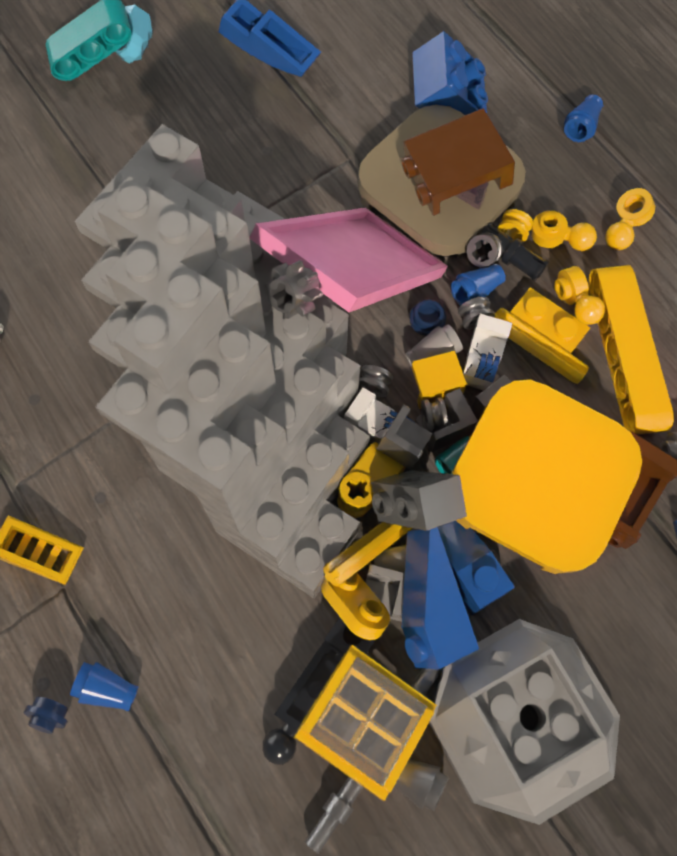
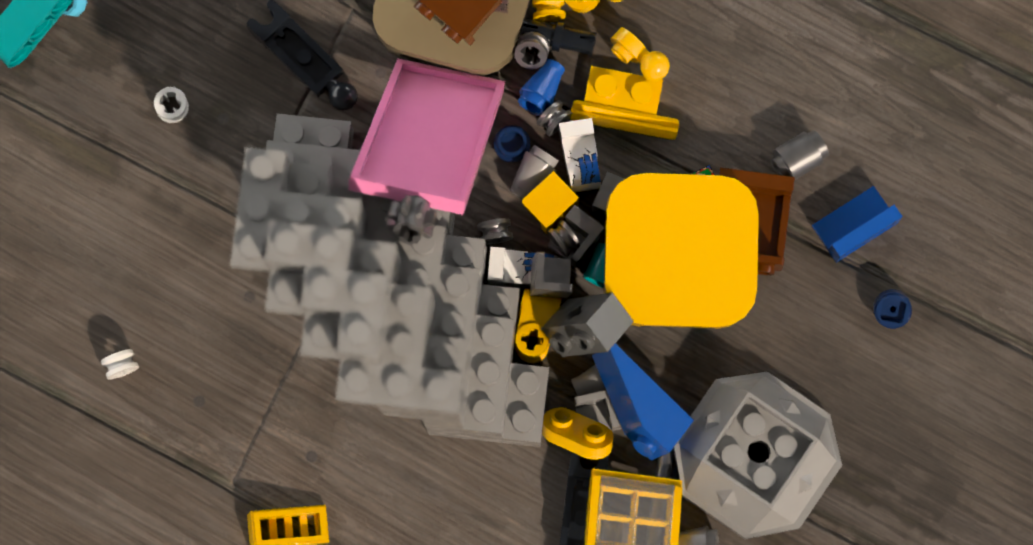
camera: 20 degrees left, 10 degrees up
(287, 167) = (303, 57): none -> black plate
(362, 552) = (562, 391): yellow axle -> none
(474, 567) = (658, 356): blue slope -> none
(631, 352) = (706, 83): yellow beam -> none

